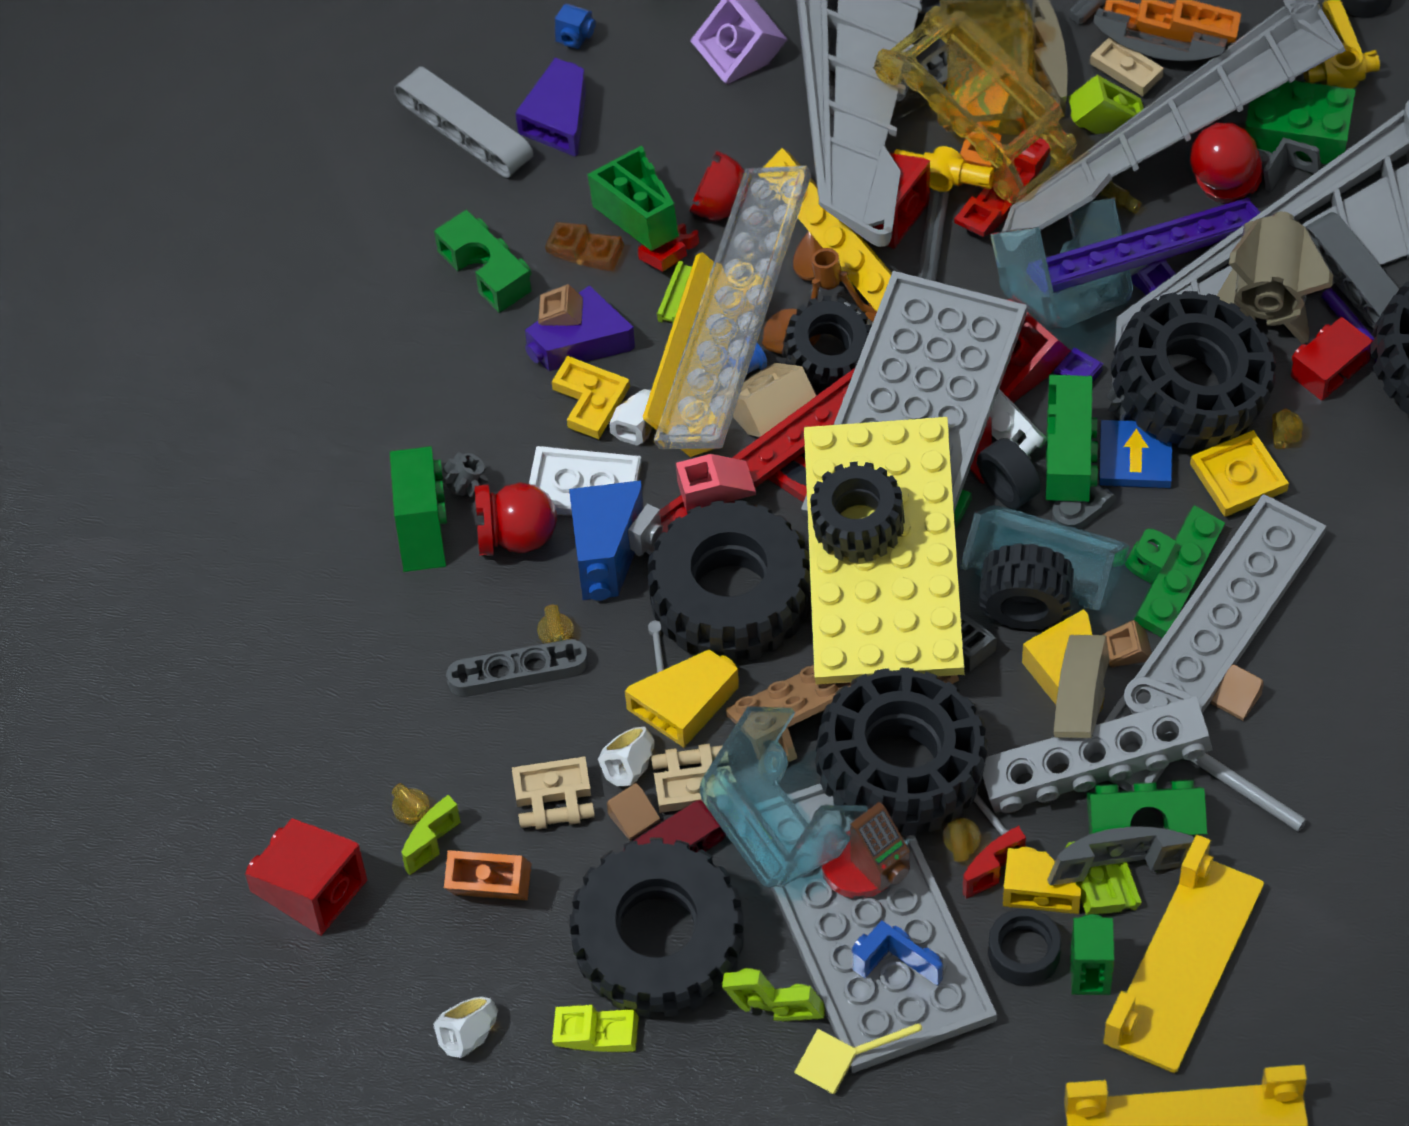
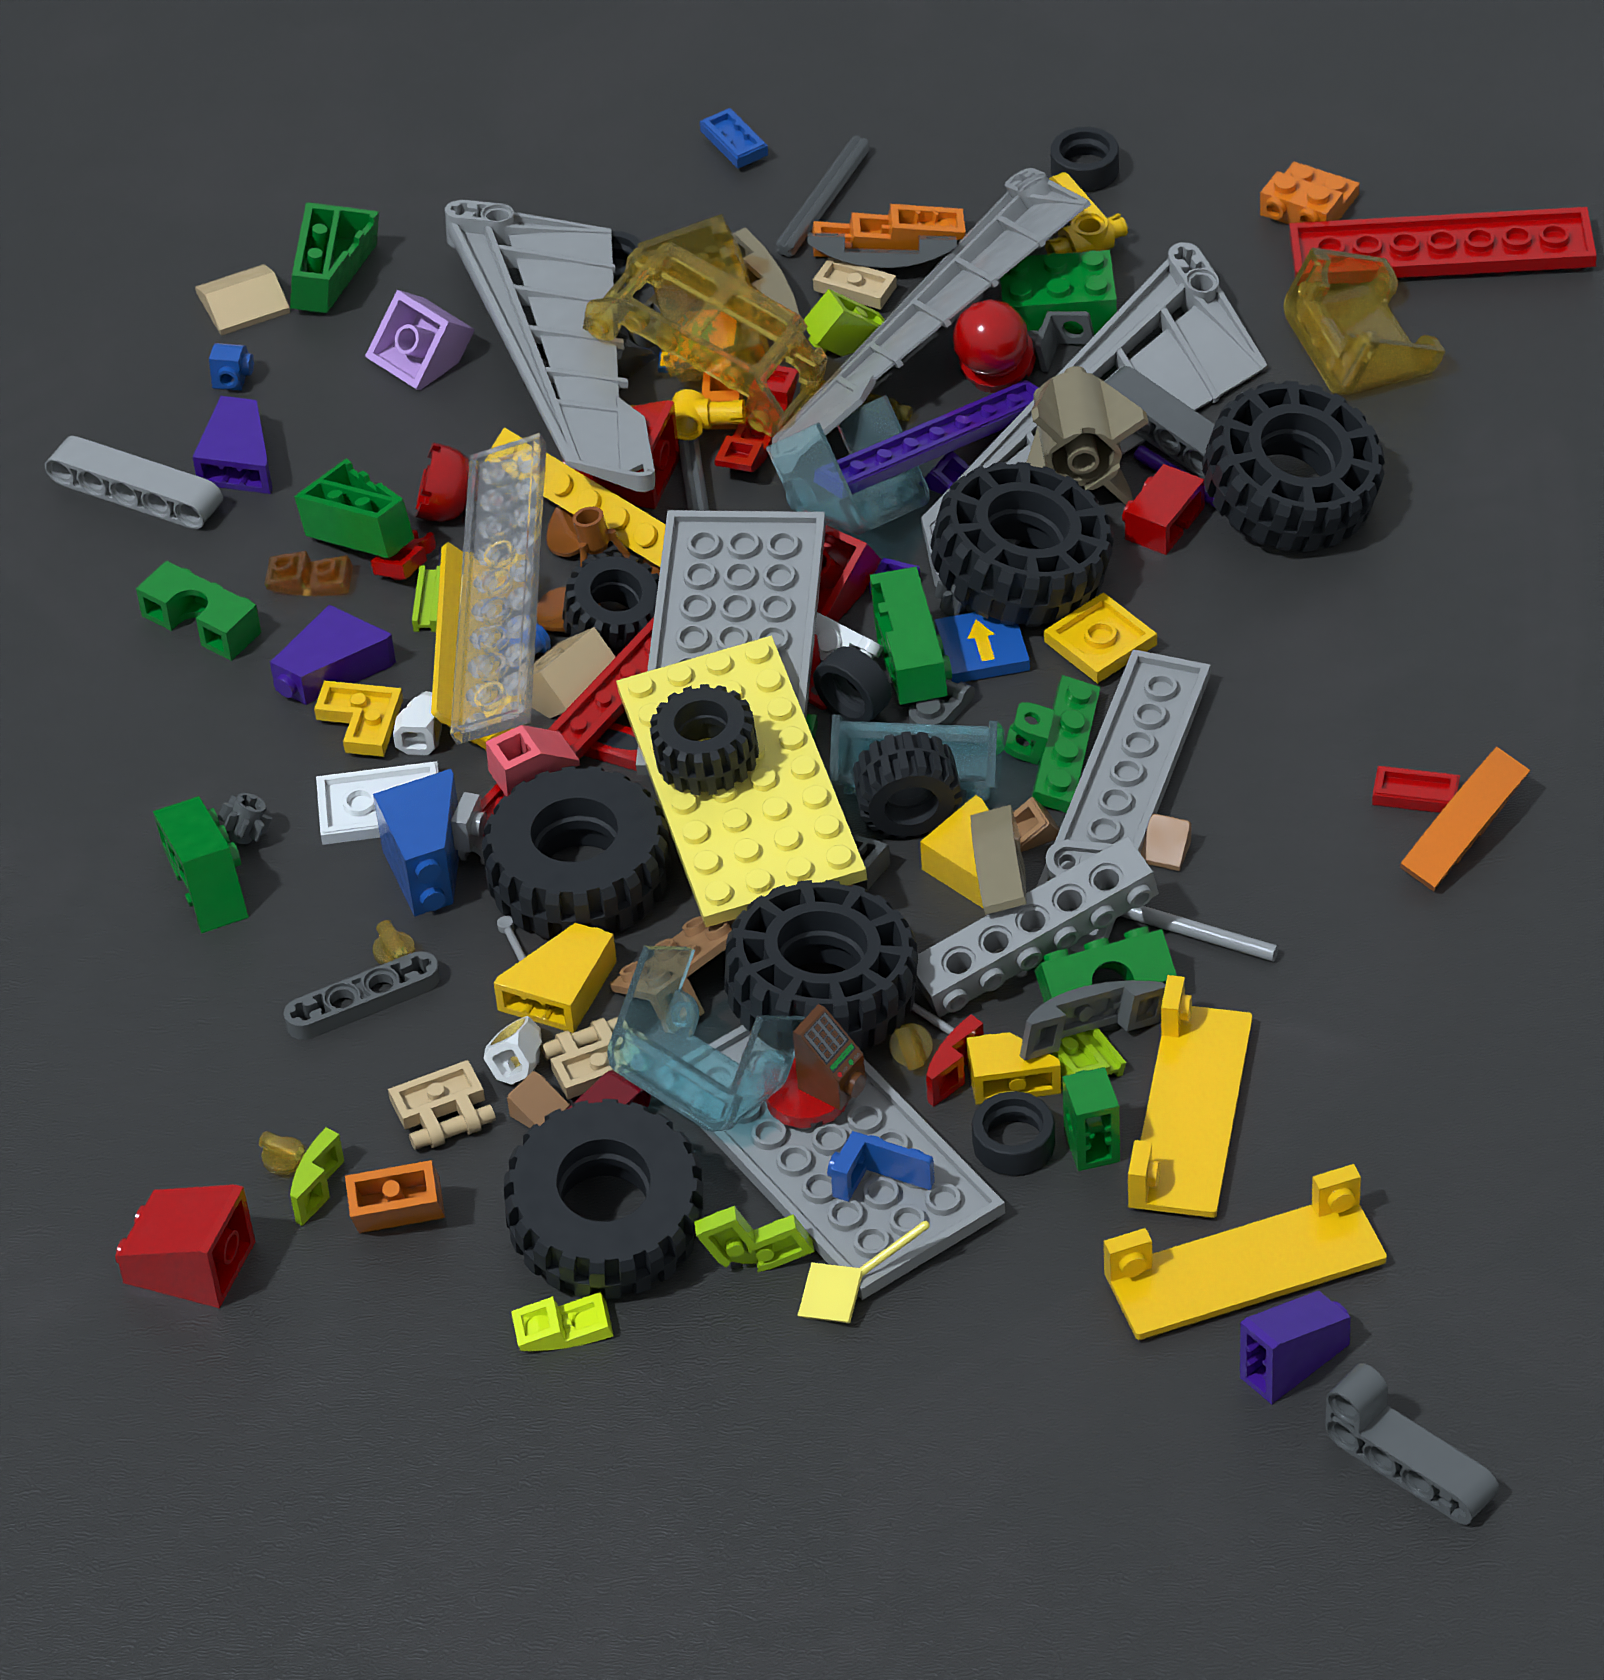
camera: 15 degrees left, 10 degrees down
(465, 1026) = (414, 1353): white rock -> none
(516, 518) = (316, 845): red tile -> none
(561, 307) = (304, 630): medium nougat slope -> none
(1286, 428) = (1136, 585): clear yellow plate -> none

